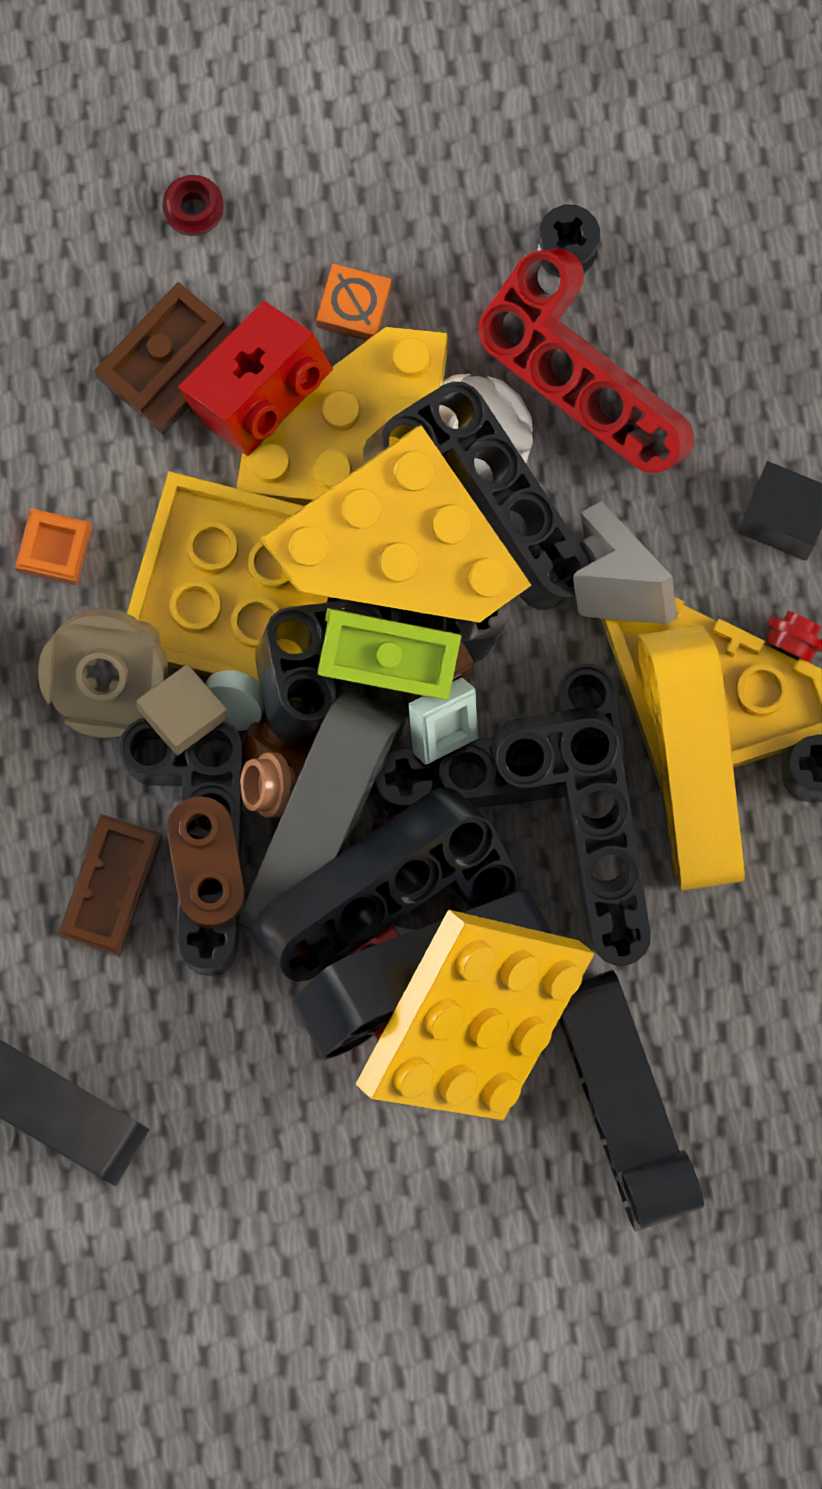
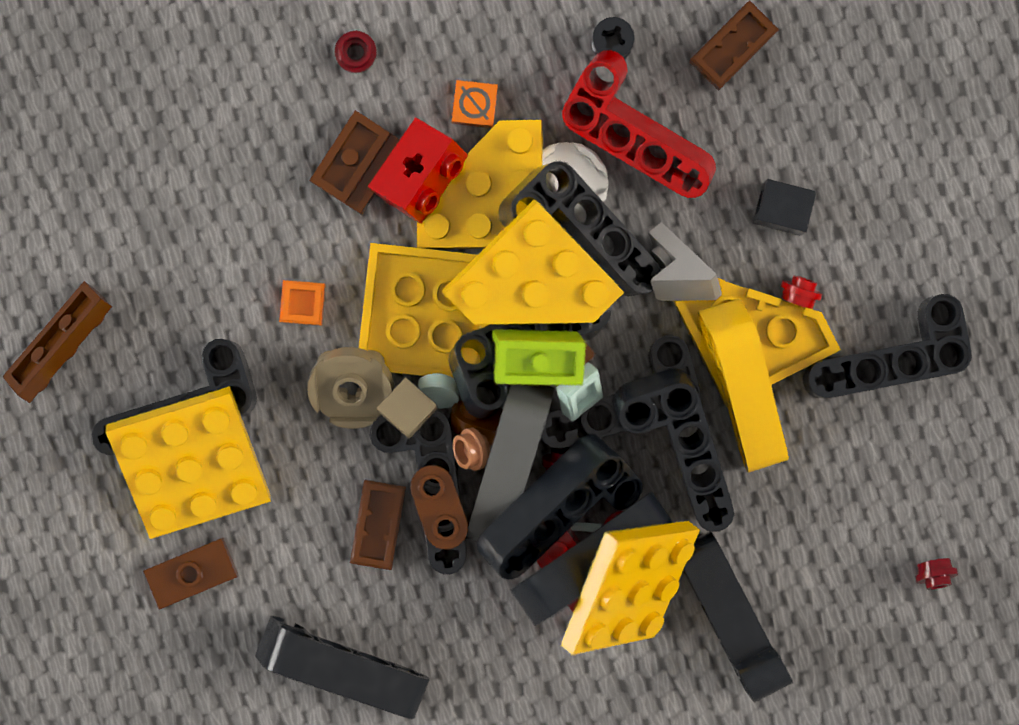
camera: 10 degrees left, 10 degrees up
(744, 274) = (734, 45): none -> reddish brown plate

